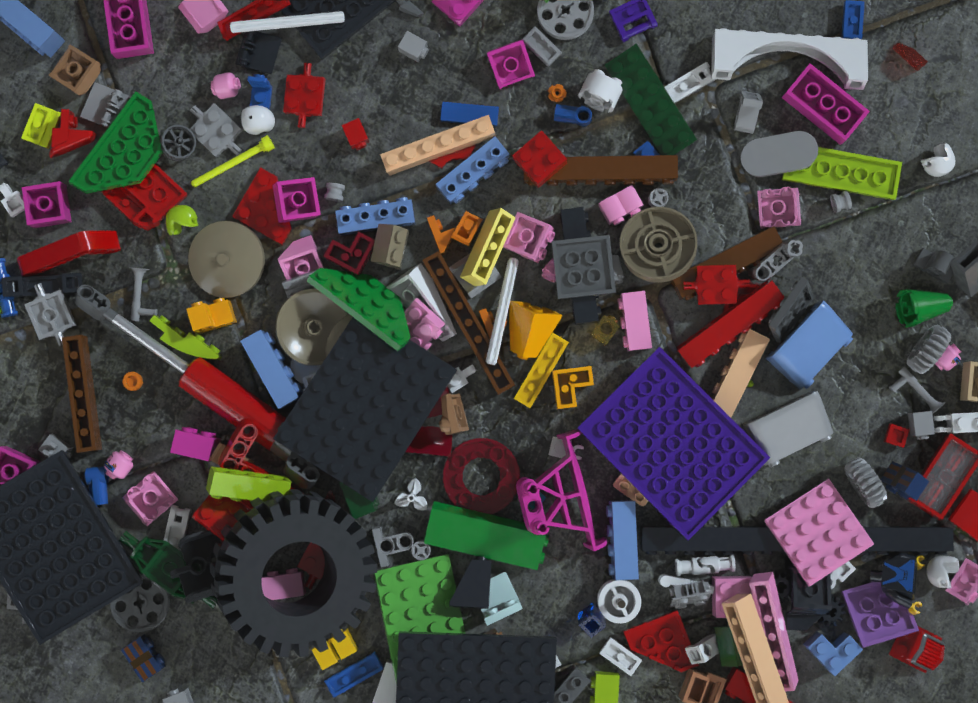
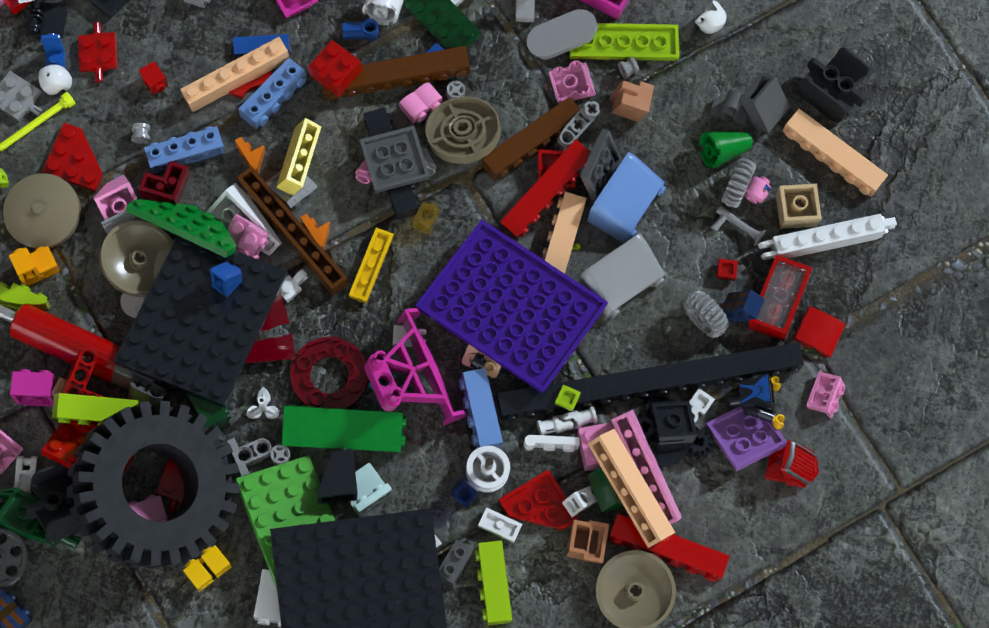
camera: 20 degrees left, 15 degrees down
(225, 85) = (19, 53): bright pink head -> none
(272, 369) = (102, 302): medium blue brick -> none
(296, 199) = (104, 143): dark pink brick -> none
(354, 674) = (231, 593): blue tile -> none
(390, 245) = (203, 170): dark tan slope -> none
(395, 373) = (225, 278): none -> blue slope
(453, 414) = (290, 318): medium nougat slope -> none
(467, 228) = (275, 147): orange slope -> none
(502, 311) = (322, 217): white axle -> none
(529, 237) = (337, 145): bright pink plate -> none
(530, 328) = (353, 226): light orange slope -> none
(557, 88) = (341, 18): orange plate -> none
(565, 383) = (399, 268): light orange brick -> none
(628, 492) = (478, 362): none -> black plate
(635, 321) = (454, 205): bright pink brick -> none
(698, 598) = (557, 453): light grey hinge -> none
(710, 546) = (567, 398): none -> lime tile
(716, 284) = (525, 155): red plate -> none
(819, 532) = (670, 367): bright pink plate -> none
(835, 655) = (708, 486): medium blue brick -> none
(838, 241) = (632, 100): none -> nougat plate
(921, 424) = (747, 254): light grey brick -> none
(938, 569) = (796, 384): white helmet -> none

